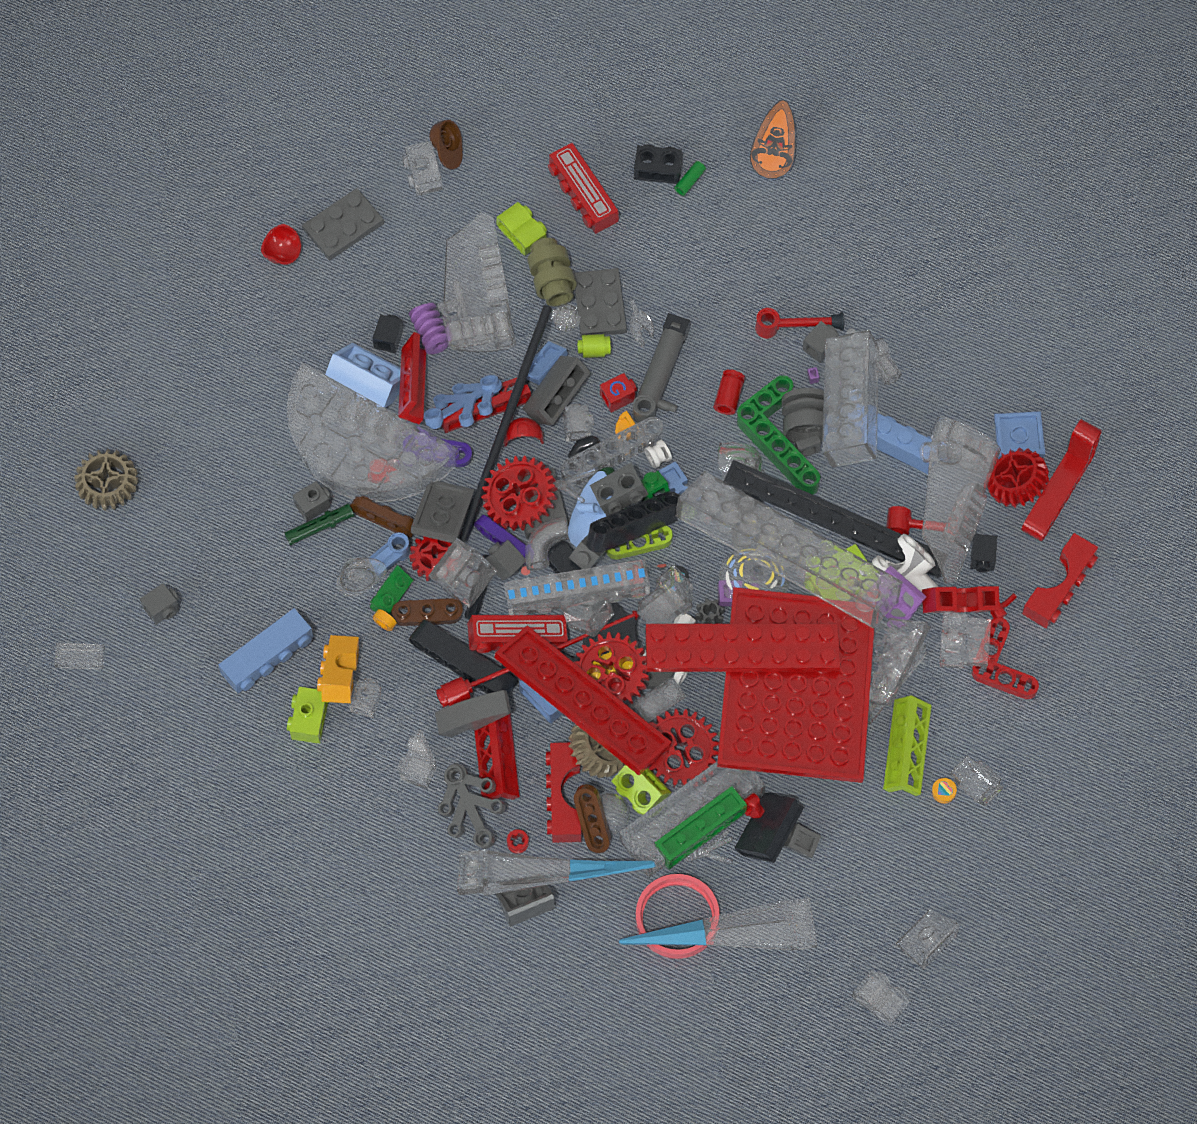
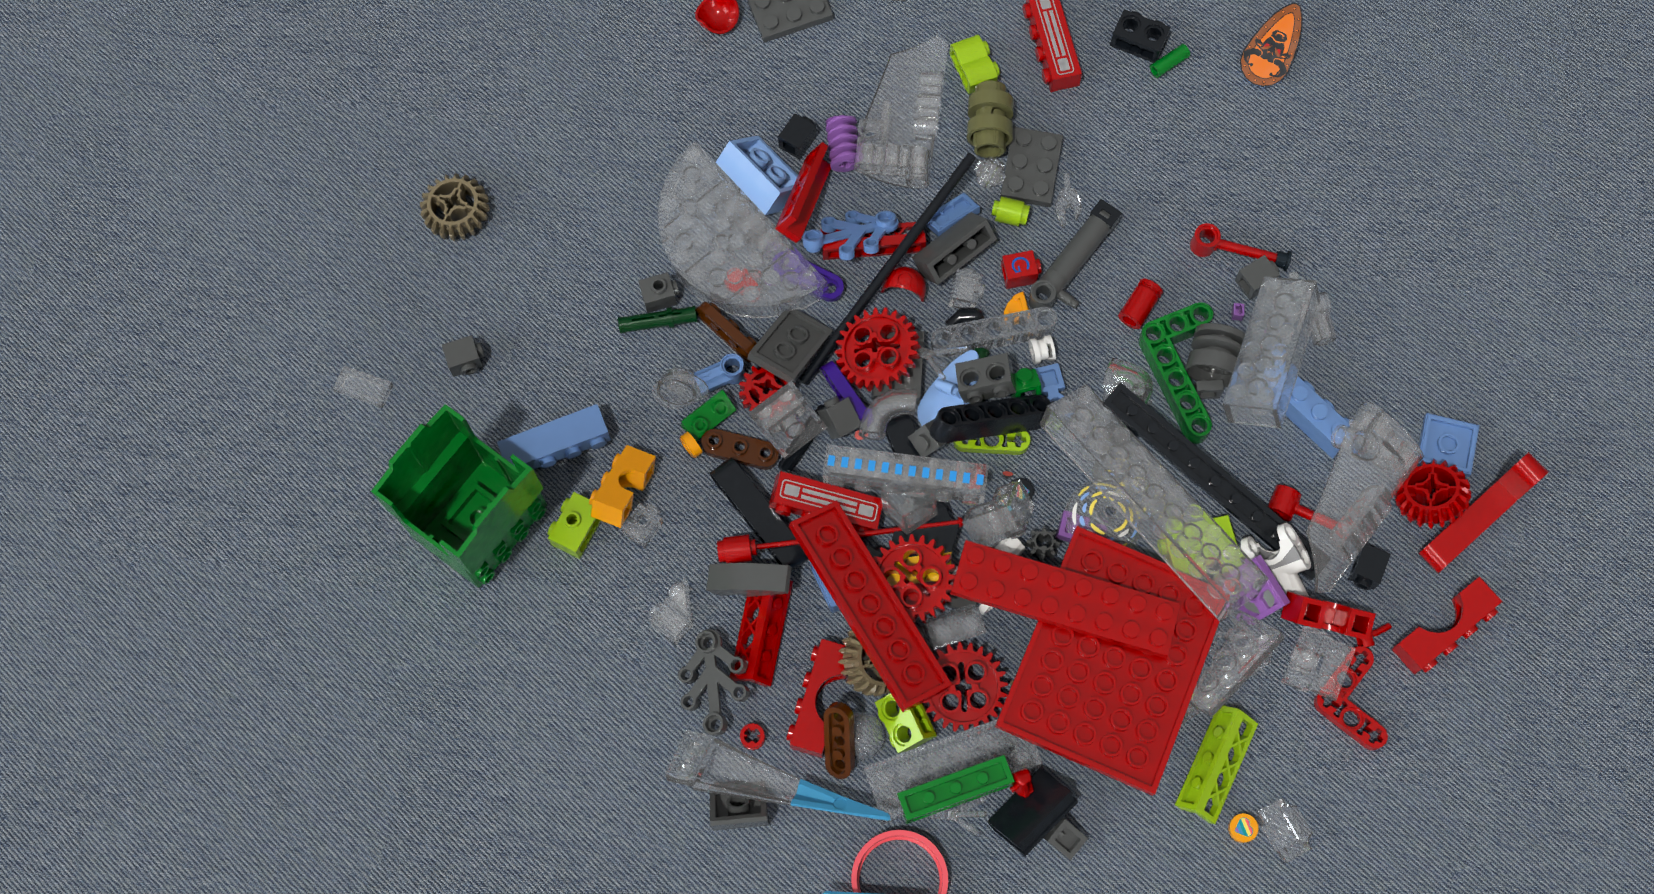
camera: 20 degrees right, 5 degrees up
(213, 714) = (460, 496): none -> green piece

